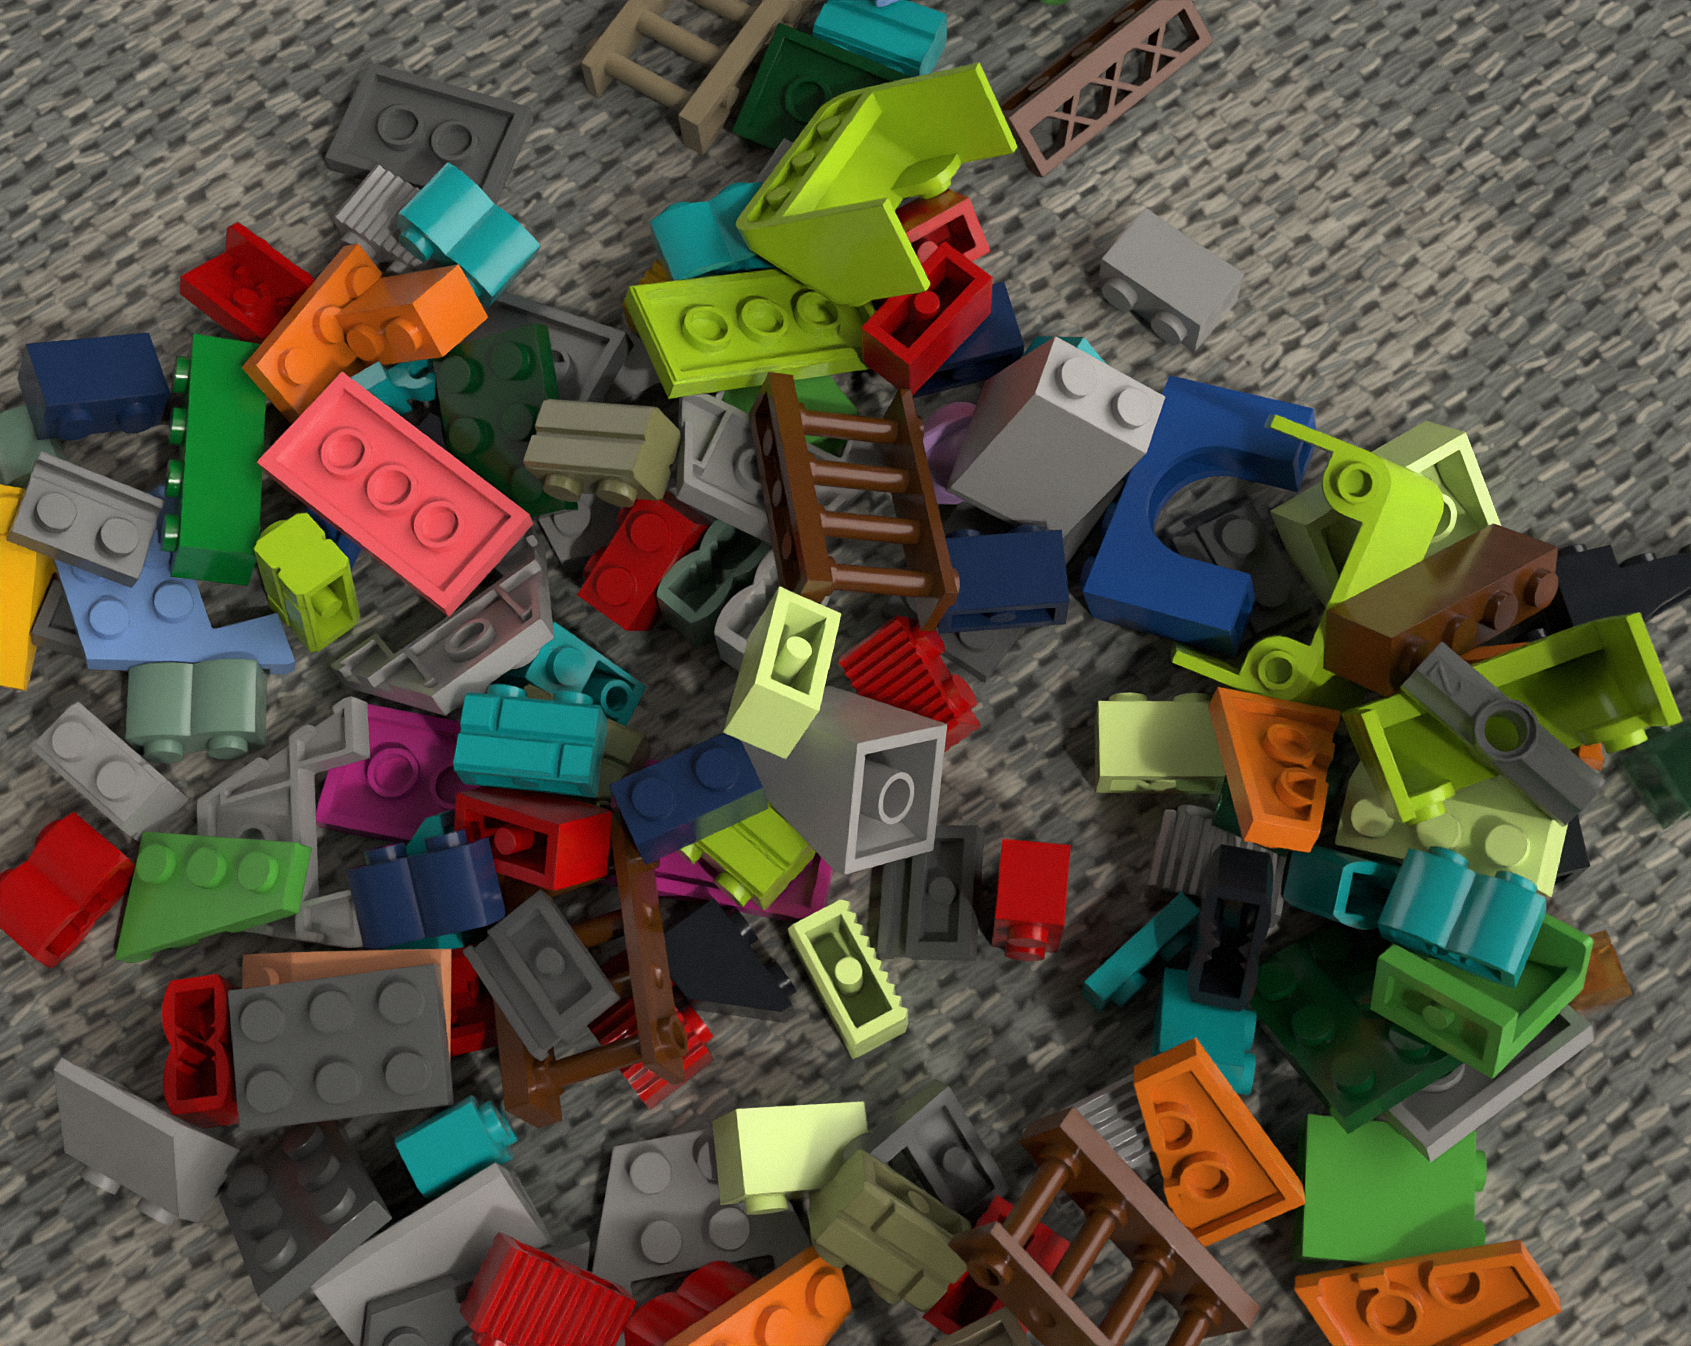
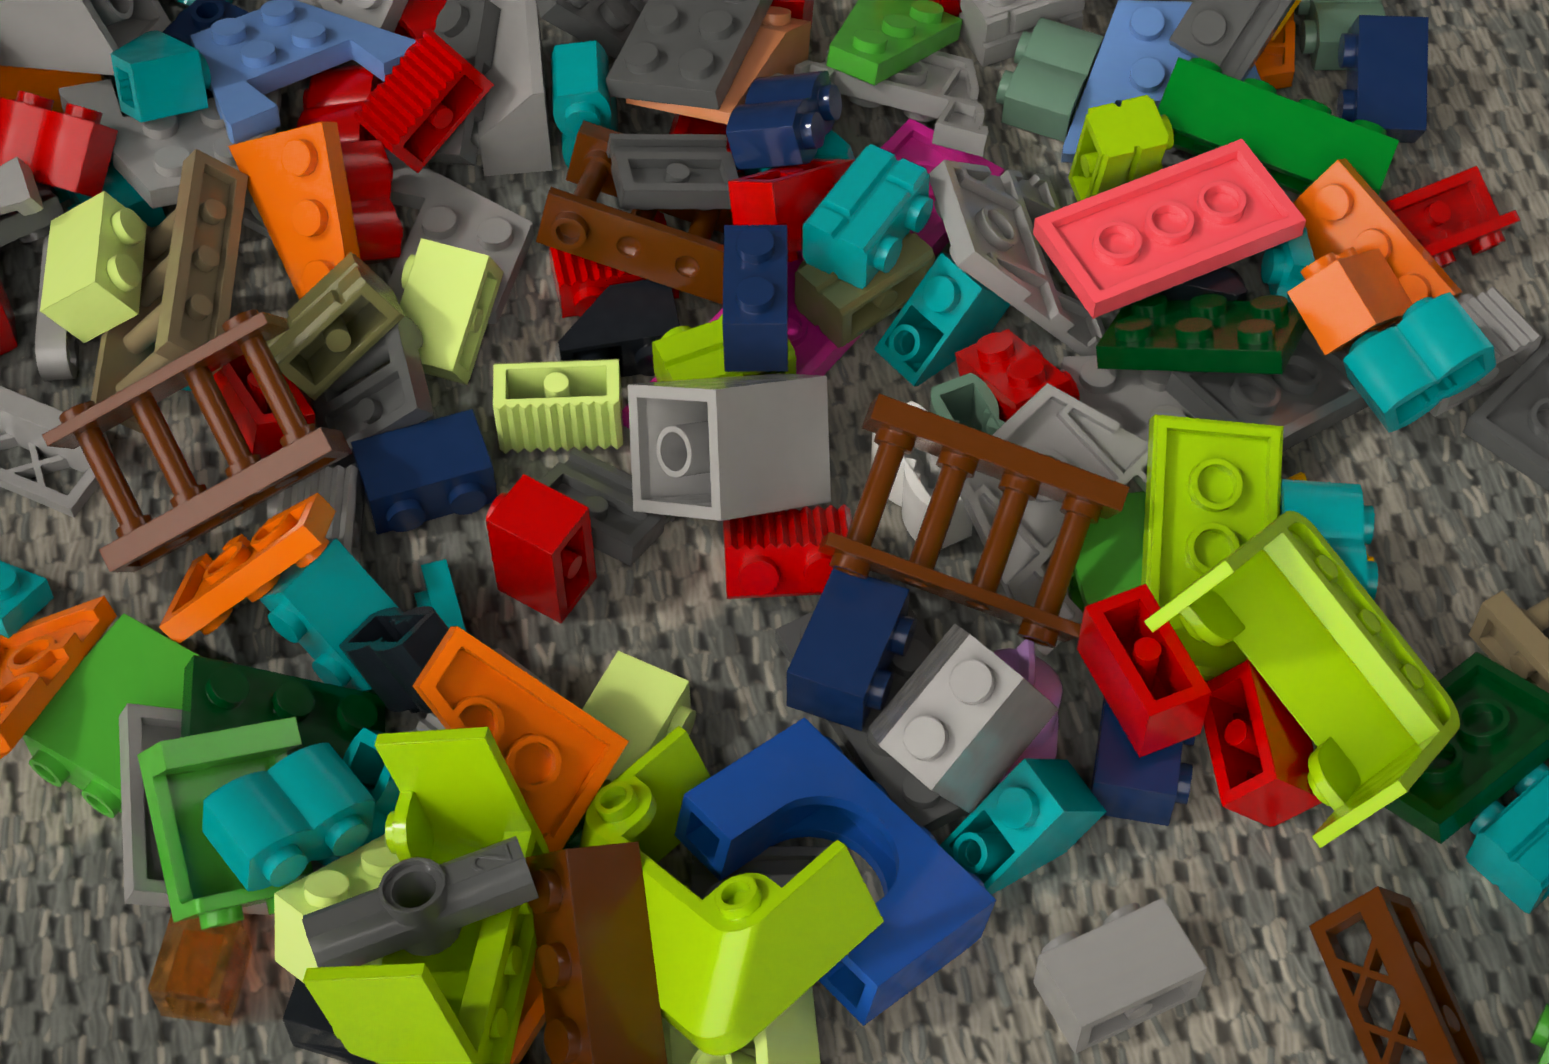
camera: 110 degrees right, 15 degrees down
(602, 451) = (1117, 350): olive brick -> none
(783, 673) = (813, 364): yellowish green brick -> none
(985, 1072) = (425, 472): none -> dark blue brick

